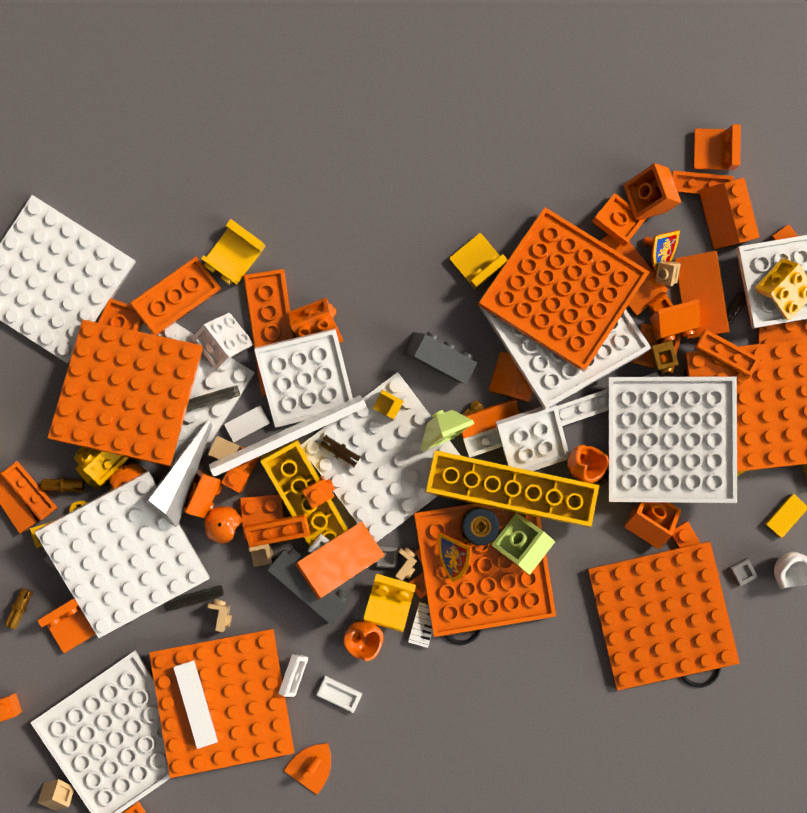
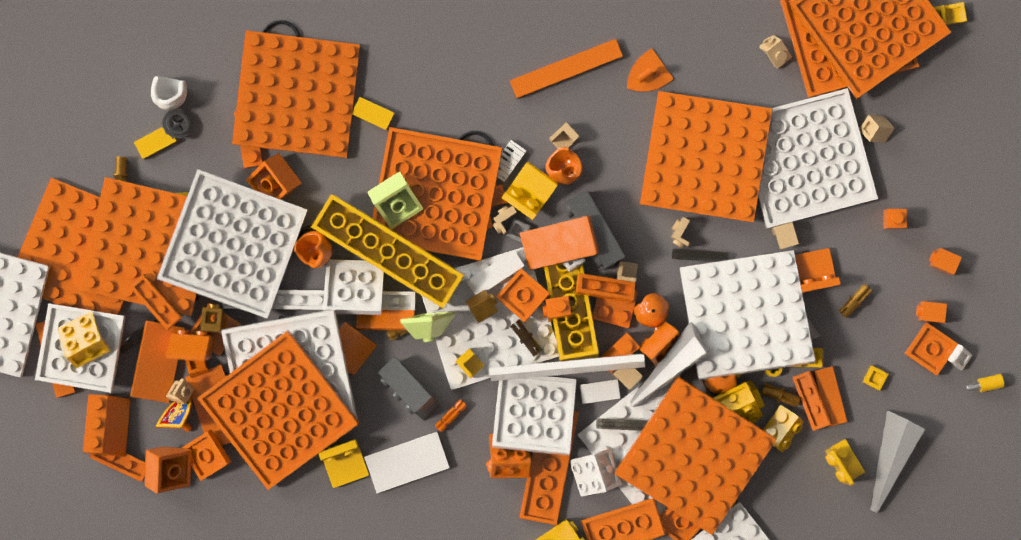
camera: 160 degrees left, 0 degrees up
(48, 454) = (783, 427): none -> yellow bracket
(112, 650) = (785, 235): none -> tan panel
(195, 704) = (728, 163): white tile -> none
(293, 675) = (636, 157): white tile -> none
(339, 694) = (601, 127): white tile -> none
(358, 492) = (522, 295): none -> orange plate
(374, 670) = (564, 137): none -> tan panel
(388, 346) = (449, 417): none -> orange axle
(394, 505) = (495, 273): none -> white tile
(395, 467) = (482, 305): none -> pearl gold brick
(397, 741) = (566, 68): none -> orange tile
(416, 284) = (406, 462): none -> white tile
(454, 556) = (459, 210): shield -> none
(475, 521) = (433, 226): black wheel -> none
(577, 624) = (373, 113): none -> yellow tile
(717, 148) = (95, 488): orange bracket -> none
(743, 572) = (211, 106): light grey tile -> none
(773, 550) = (177, 115): none -> dark grey gear

